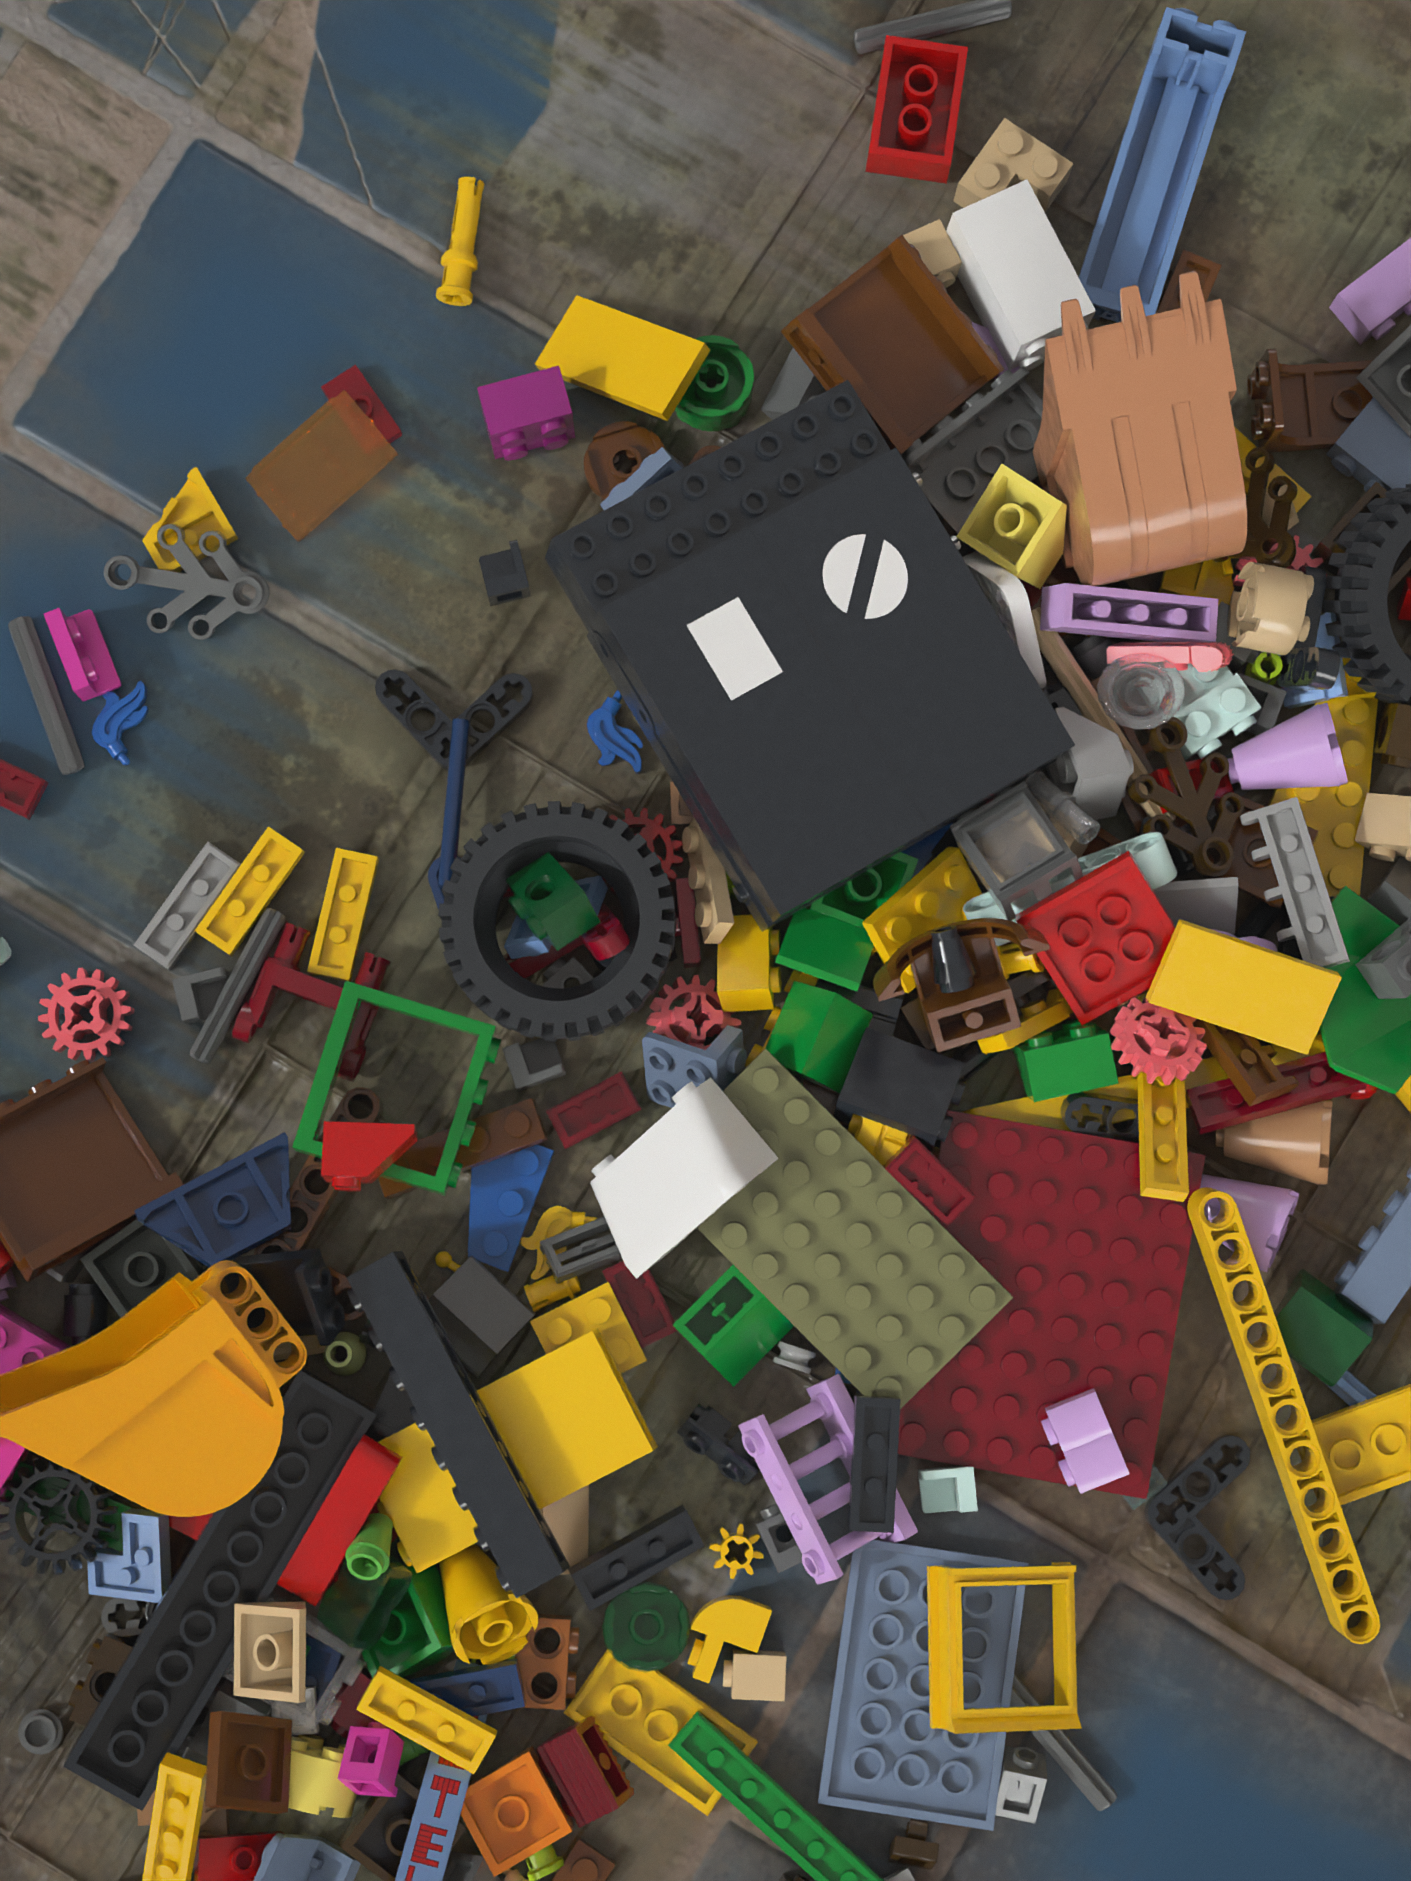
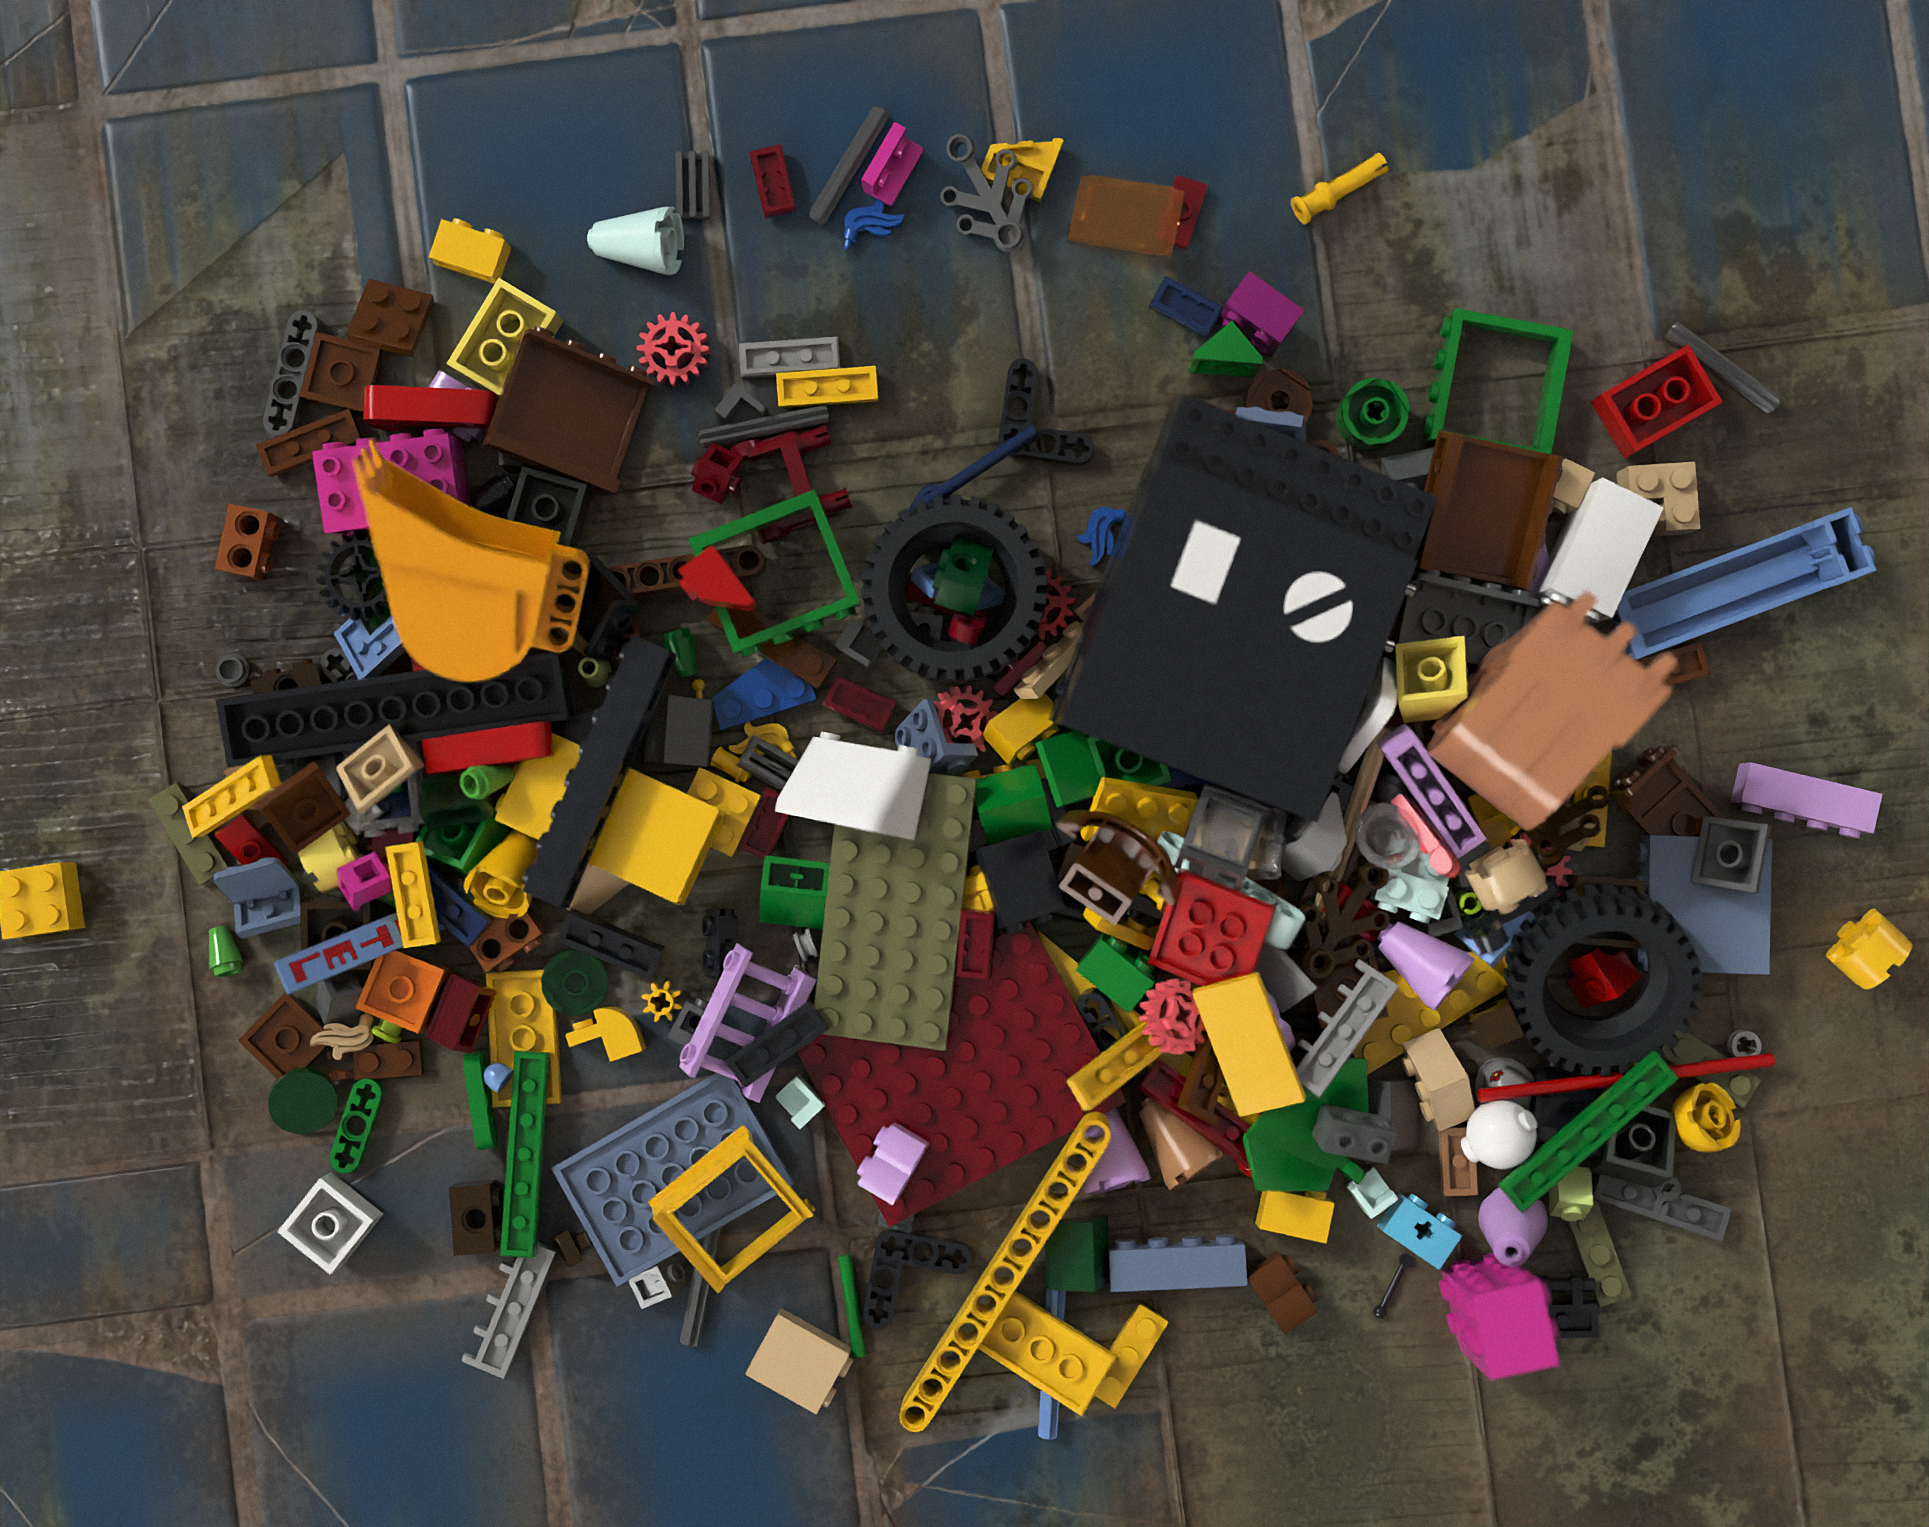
camera: 60 degrees right, 5 degrees up
(228, 1206) = (624, 530): dark blue wing -> none
(247, 1069) = (717, 473): none -> dark red brick
(343, 915) = (858, 455): yellow plate -> none
(389, 1238) = (682, 644): none -> green cone
(458, 479) = (1186, 307): none -> dark blue plate
(505, 575) = (1148, 384): black panel -> none
(541, 474) = (1227, 355): none -> green slope
(623, 357) = (1344, 346): yellow tile -> none
(680, 1784) = (497, 1076): none -> medium blue hinge
(690, 1823) = (480, 1101): none -> green beam
(756, 1675) = (597, 1071): tan brick -> none
(815, 187) = (1553, 379): none -> green window
(951, 961) = (1120, 851): black cone -> none
(1196, 1602) = (852, 1305): none -> green bar
(1214, 1700) = (800, 1361): none -> tan brick

